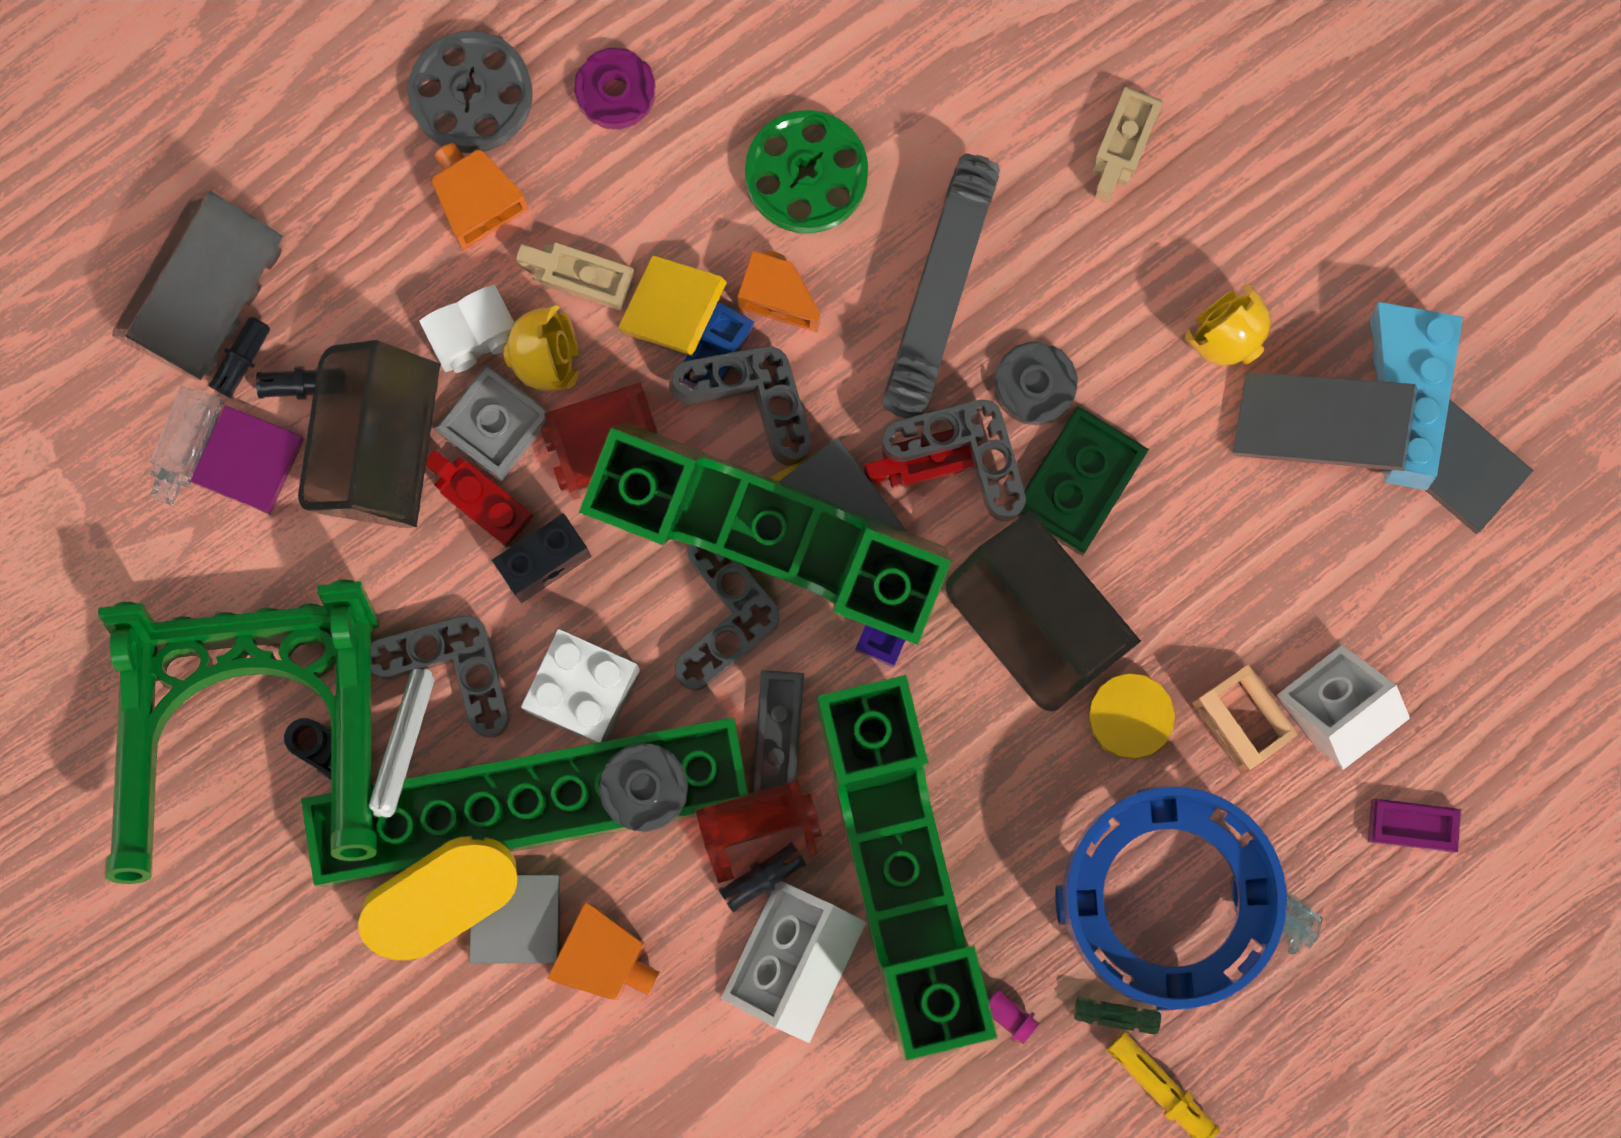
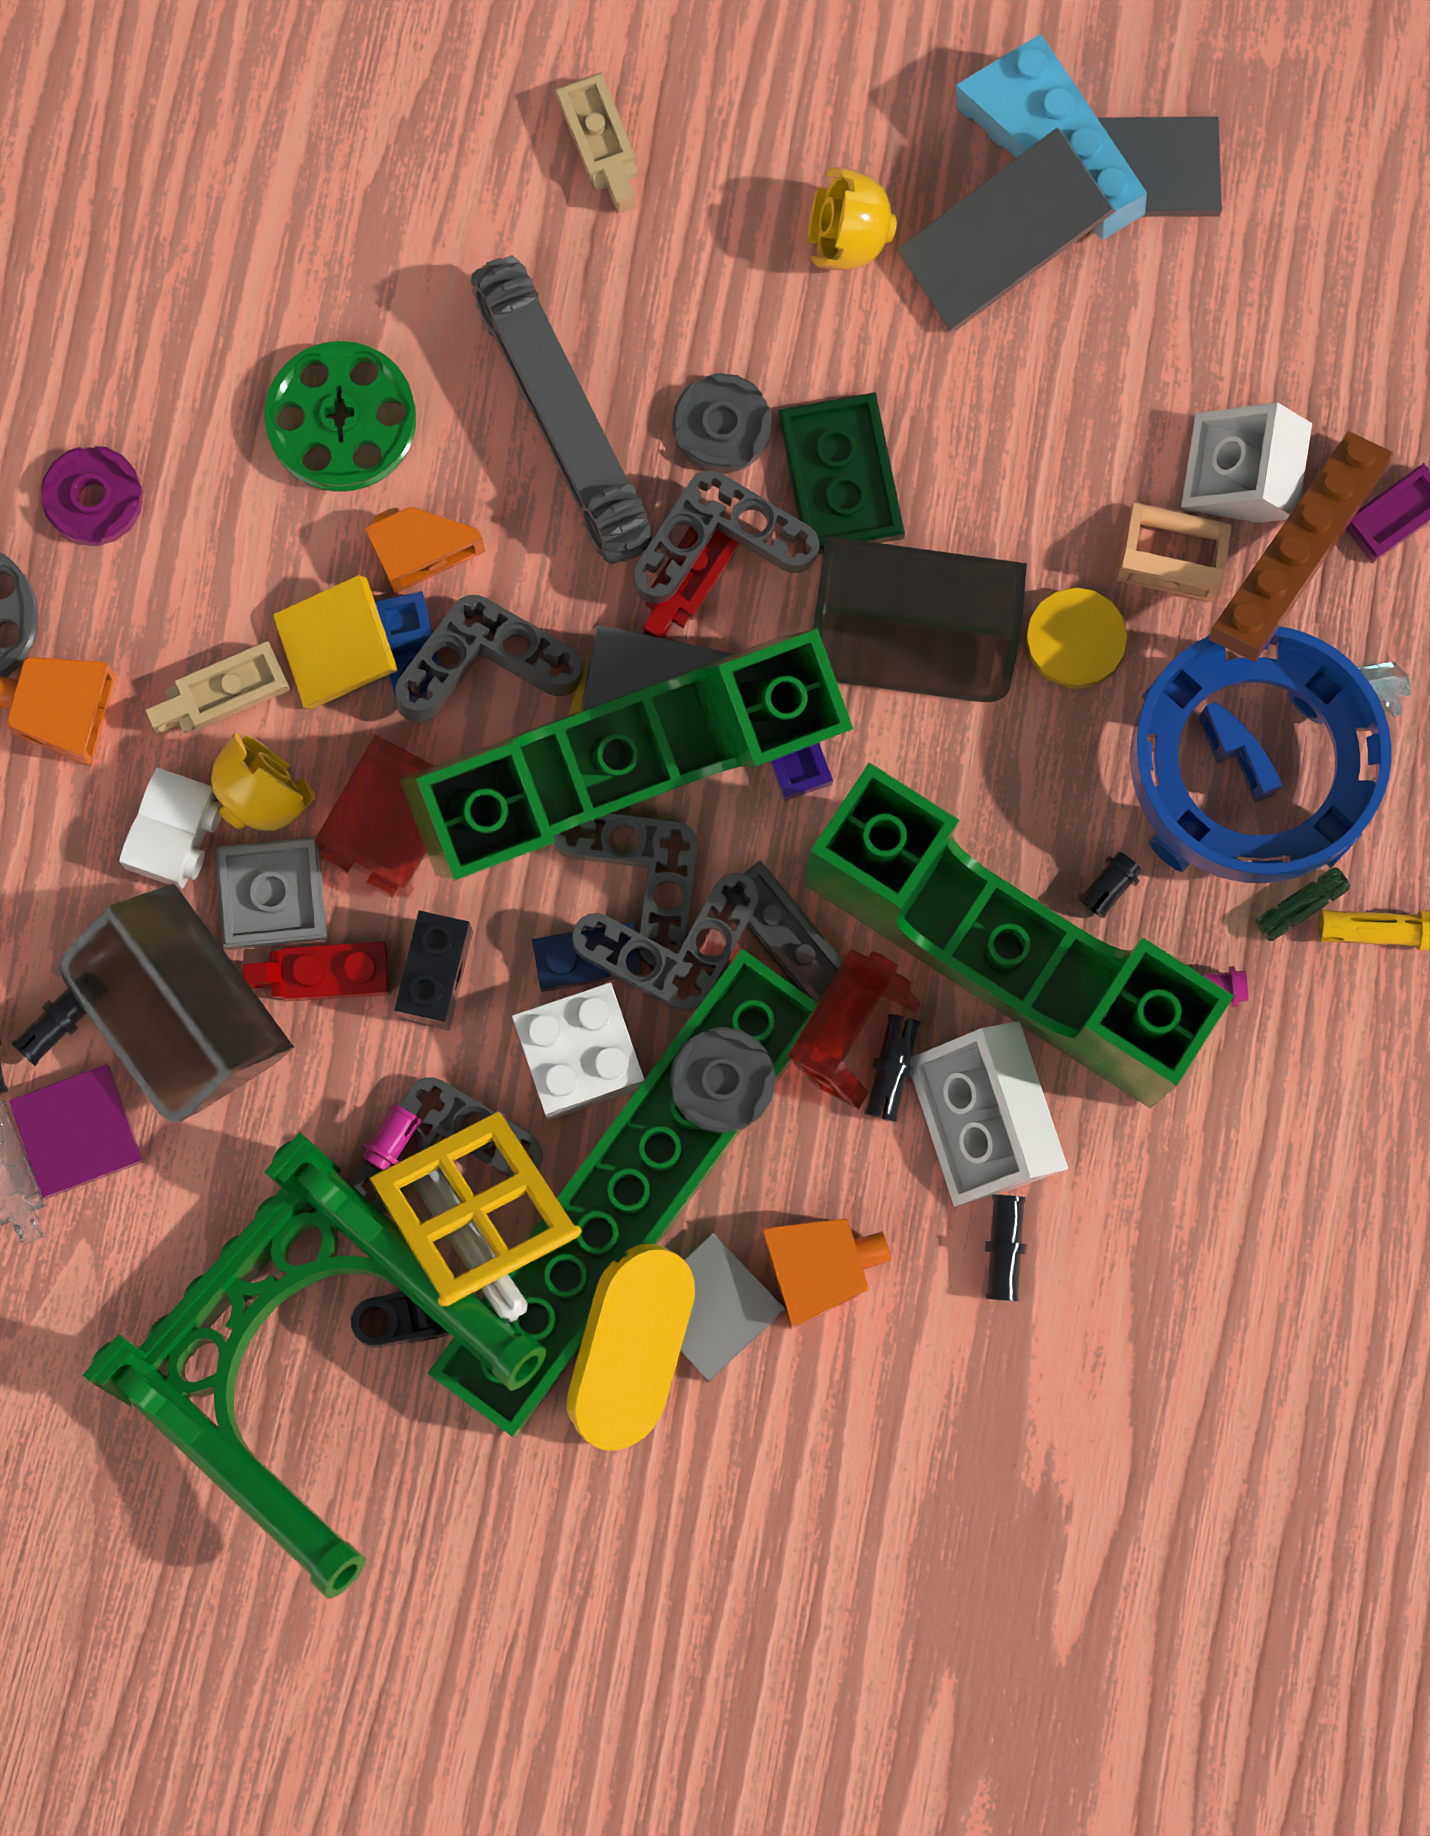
camera: 45 degrees left, 0 degrees up
(417, 636) = (390, 1138): none -> dark pink pin
(421, 724) = (473, 1208): none -> yellow window
(643, 634) = (562, 968): none -> dark blue plate
(684, 686) = (667, 963): none -> dark grey beam
(726, 1054) = (1005, 1247): none -> black pin
(1006, 890) = (1111, 884): none -> black pin
(1169, 870) = (1231, 739): none -> blue slope
(1325, 790) = (1300, 546): none -> dark orange plate

